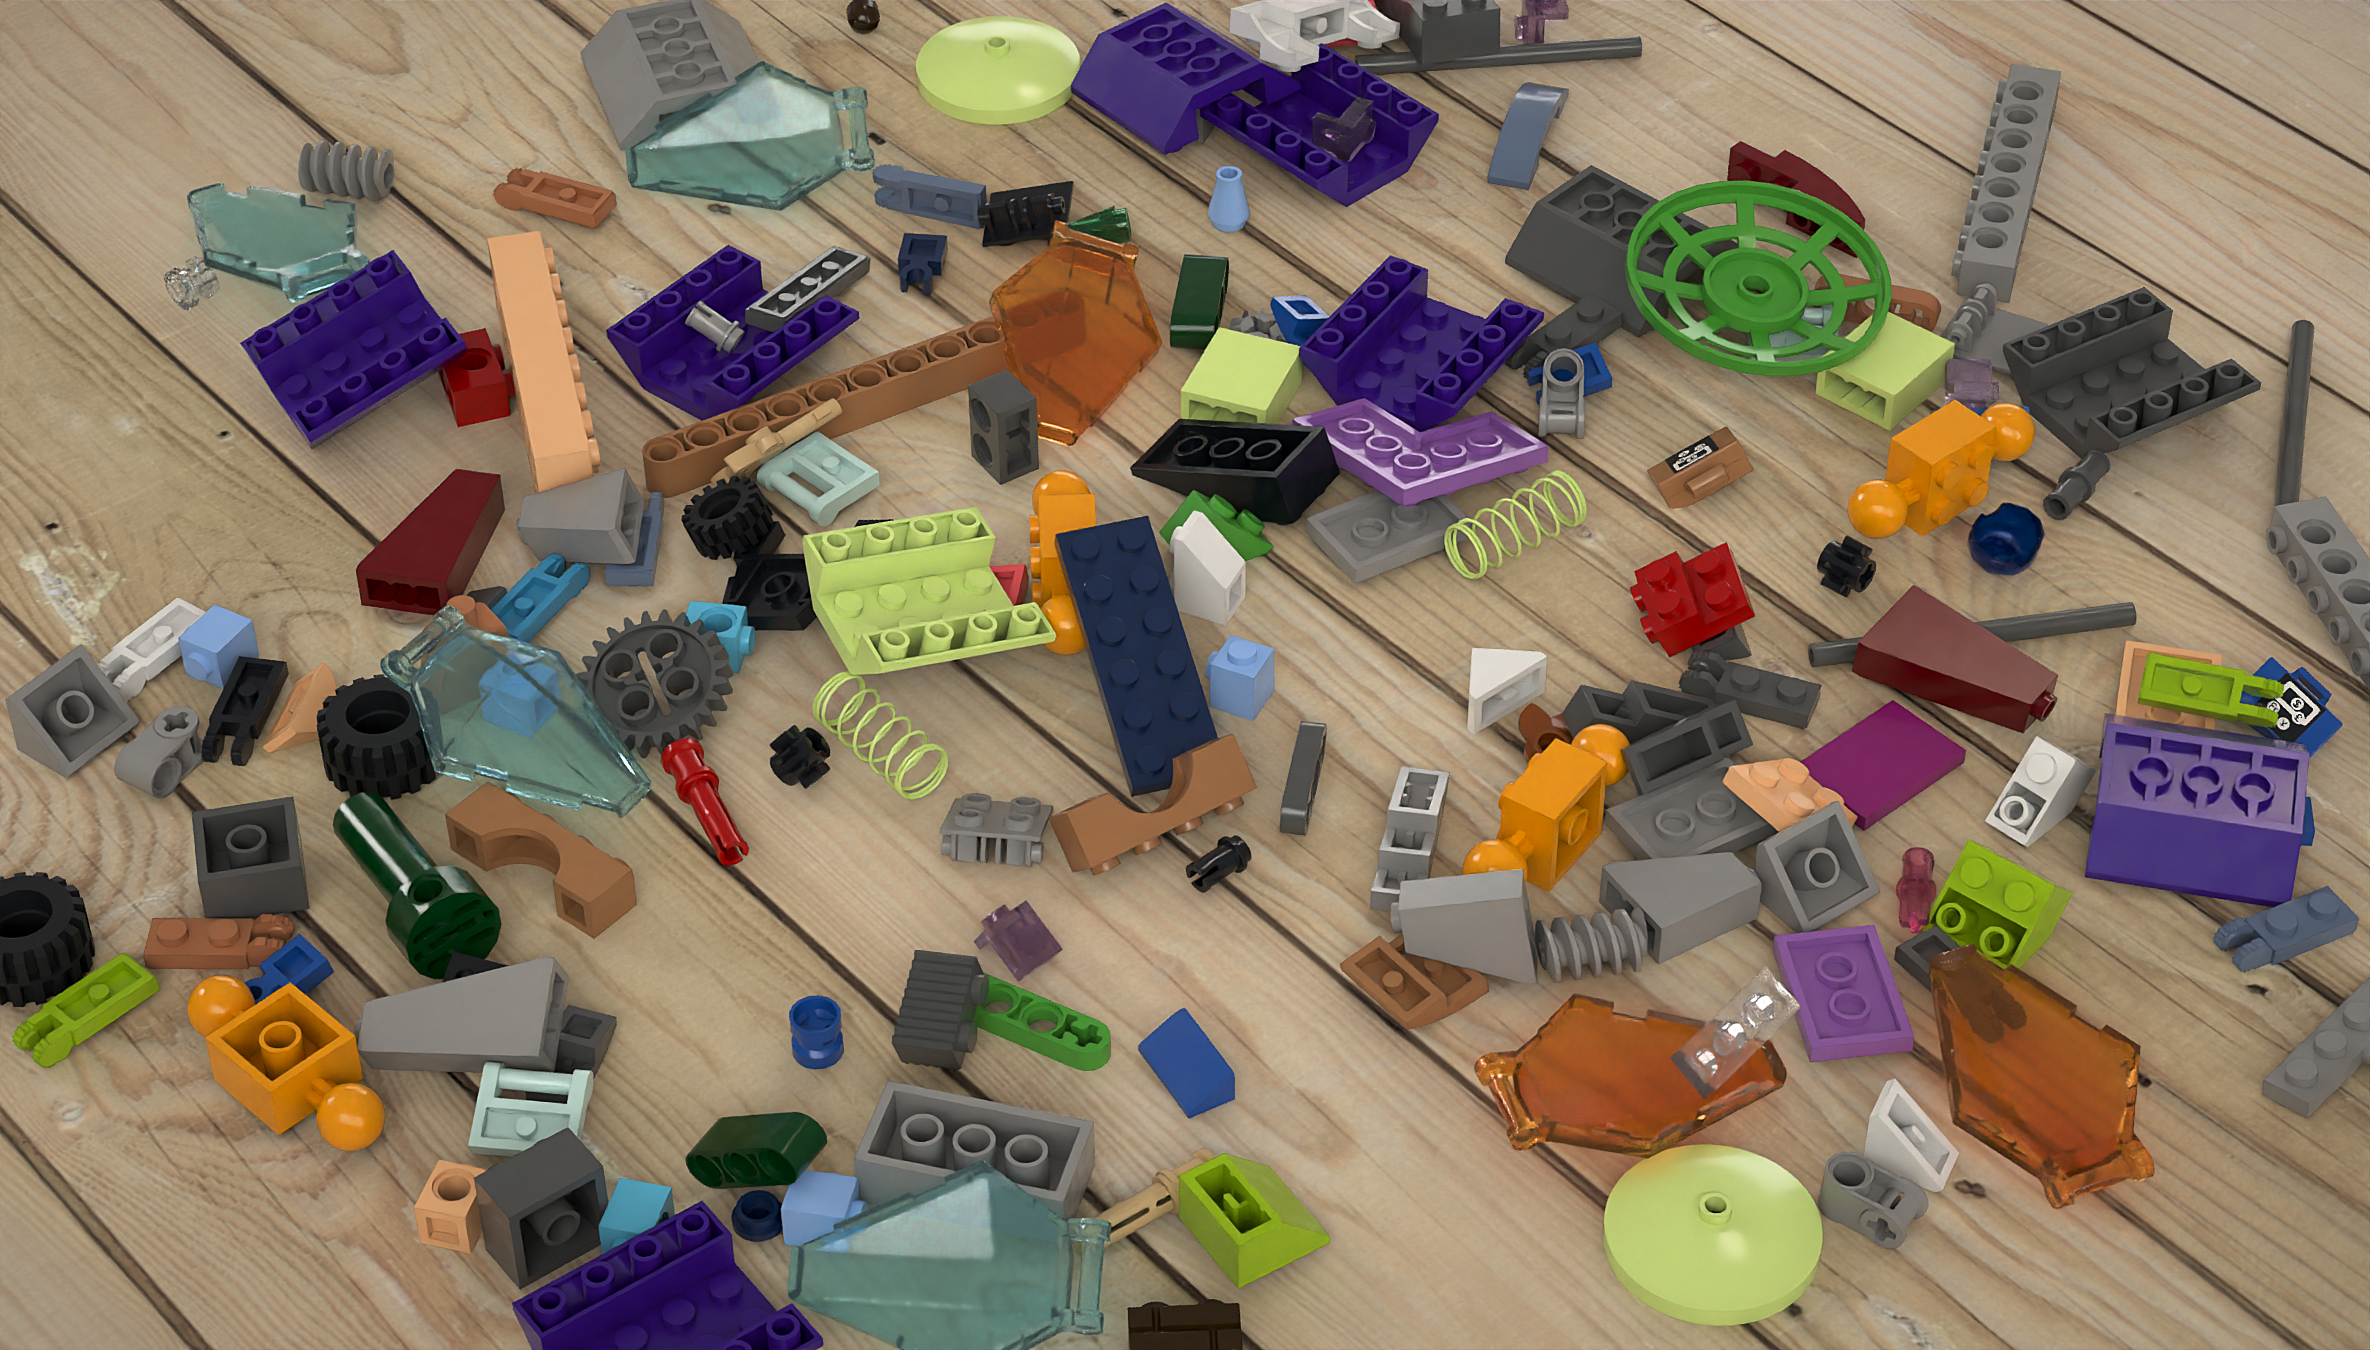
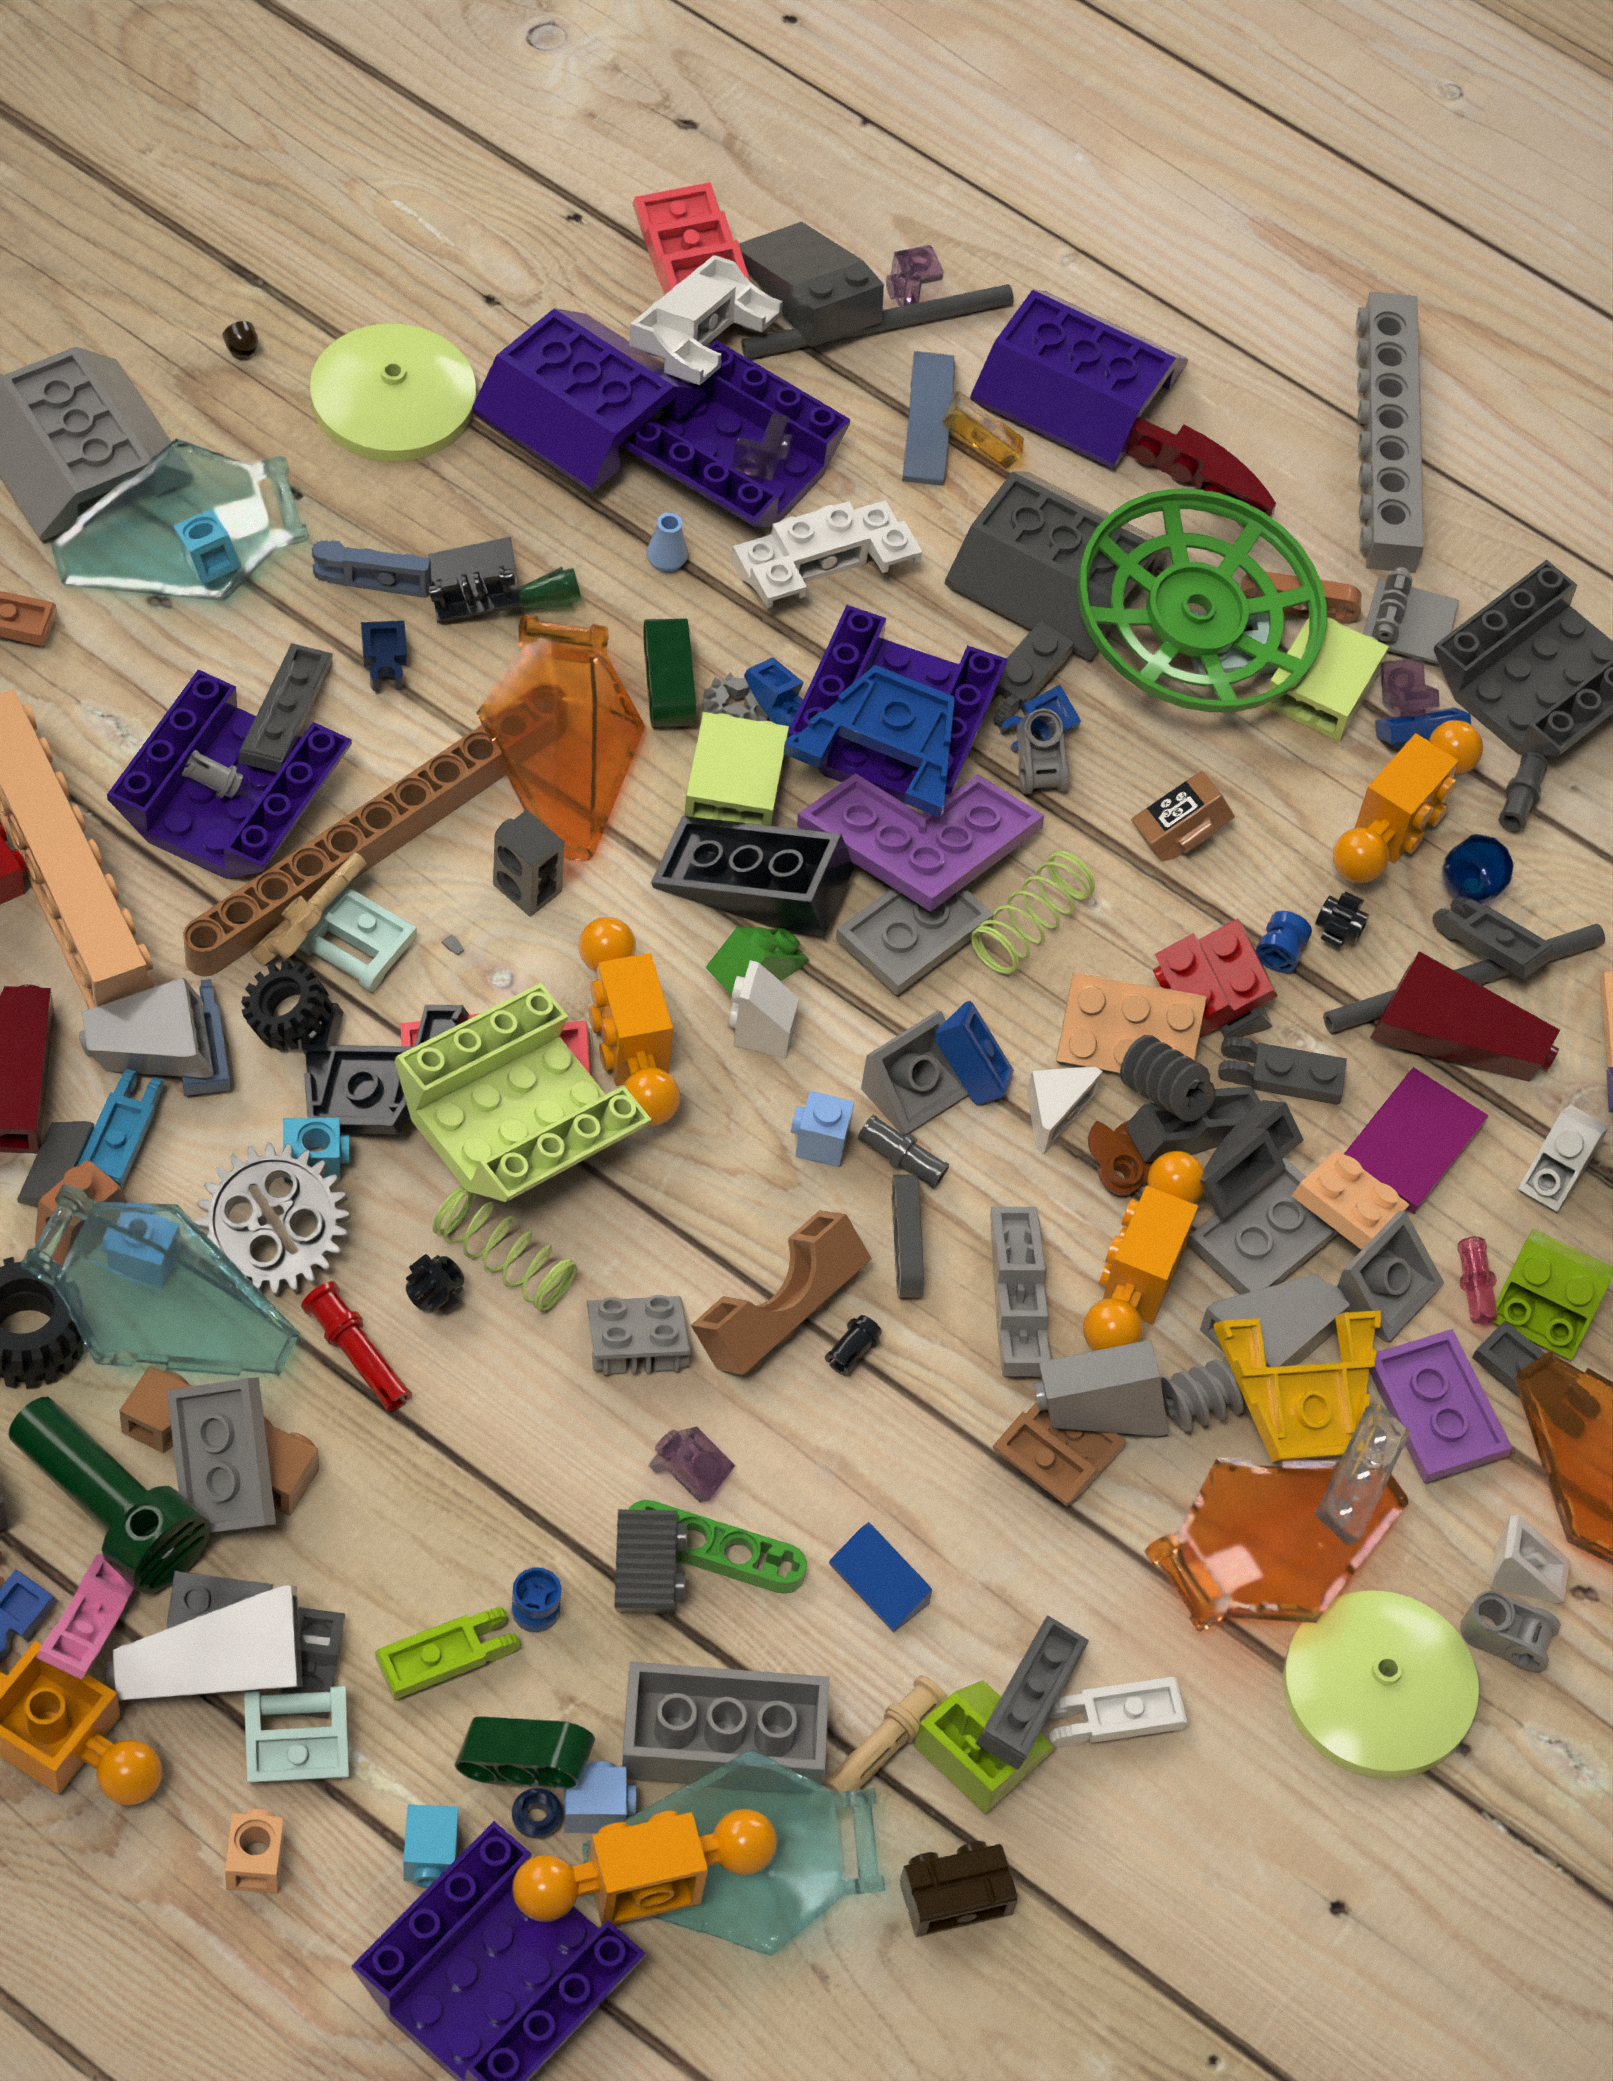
camera: 20 degrees left, 15 degrees up
(344, 989) = (87, 1620): none -> bright pink slope
(532, 854) = (223, 1453): none -> light grey plate
(542, 1207) = (345, 1849): dark grey brick -> none
(711, 1065) = (444, 1652): none -> lime hinge
(771, 156) = (207, 546): none -> medium azure brick
(844, 1256) = (645, 1866): none -> light orange brick
(915, 498) = (453, 944): none -> light grey piece
(1136, 648) = (729, 1123): dark blue plate -> none
(1312, 1172) = (1032, 1692): none -> dark grey tile
(1321, 708) = (903, 1151): none -> dark grey pin
(1352, 641) = (912, 1076): none -> light grey slope
(1385, 218) = (821, 546): none -> white bracket
(1401, 339) = (891, 718): none -> blue wing
(1406, 1215) = (1120, 1712): none -> white hinge
(1416, 630) = (974, 1054): none -> blue slope
(1575, 140) = (983, 430): none -> clear yellow slope
(1591, 626) = (1110, 1014): none -> light nougat plate
(1610, 660) = (1168, 1078): none -> dark grey piece
(1682, 106) = (1074, 376): none -> dark purple slope
(1682, 963) = (1303, 1407): none -> yellow wing
(1778, 579) = (1284, 939): none -> blue wheel
(2009, 595) = (1493, 936): none -> dark grey hinge

